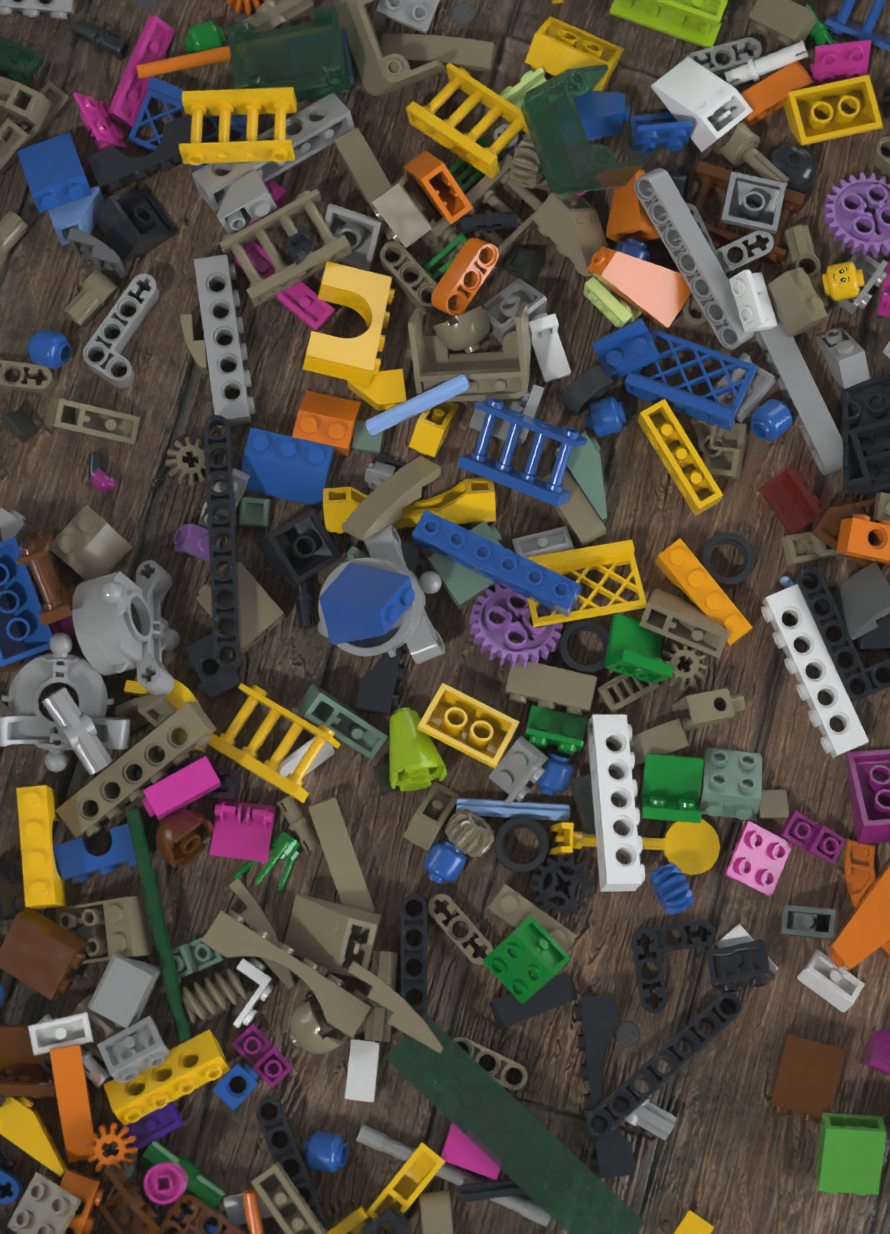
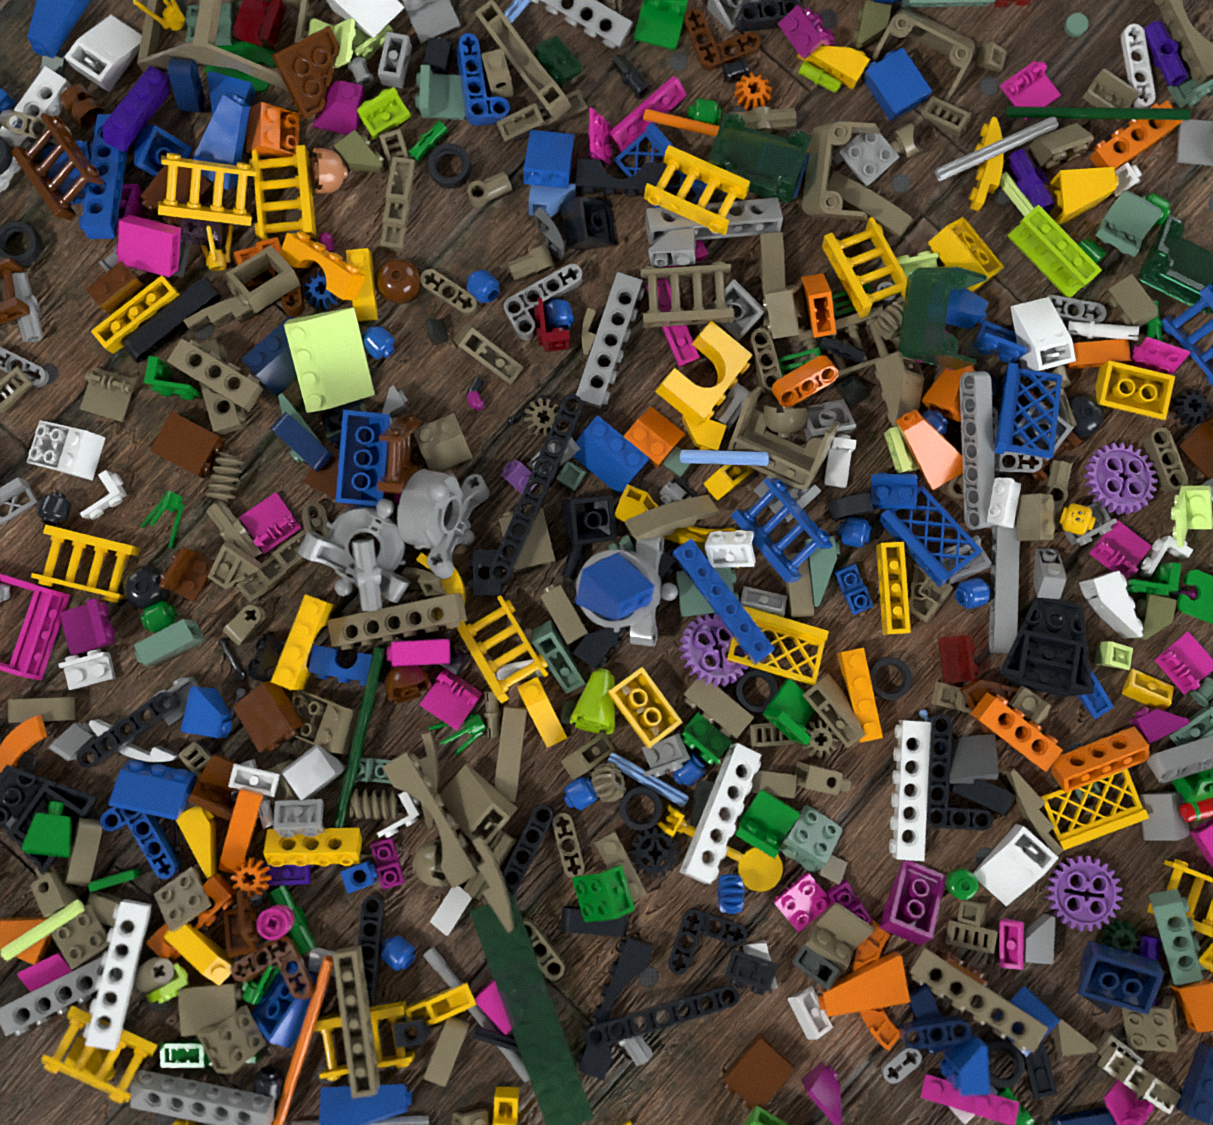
camera: 25 degrees right, 5 degrees up
(151, 340) = (558, 314): none -> blue head
(159, 370) = (552, 341): none -> dark red bracket
(299, 245) = (696, 300): black tile -> none
(323, 668) = (563, 613): none -> dark tan brick
(354, 792) = (542, 712): none -> yellow slope
(398, 347) = (732, 407): none -> light grey piece
(475, 501) = (730, 549): none -> white bracket
(636, 481) = (853, 589): none -> blue slope
(704, 190) = (1008, 412): none -> blue fence
(816, 873) = (838, 935): none -> dark tan bracket

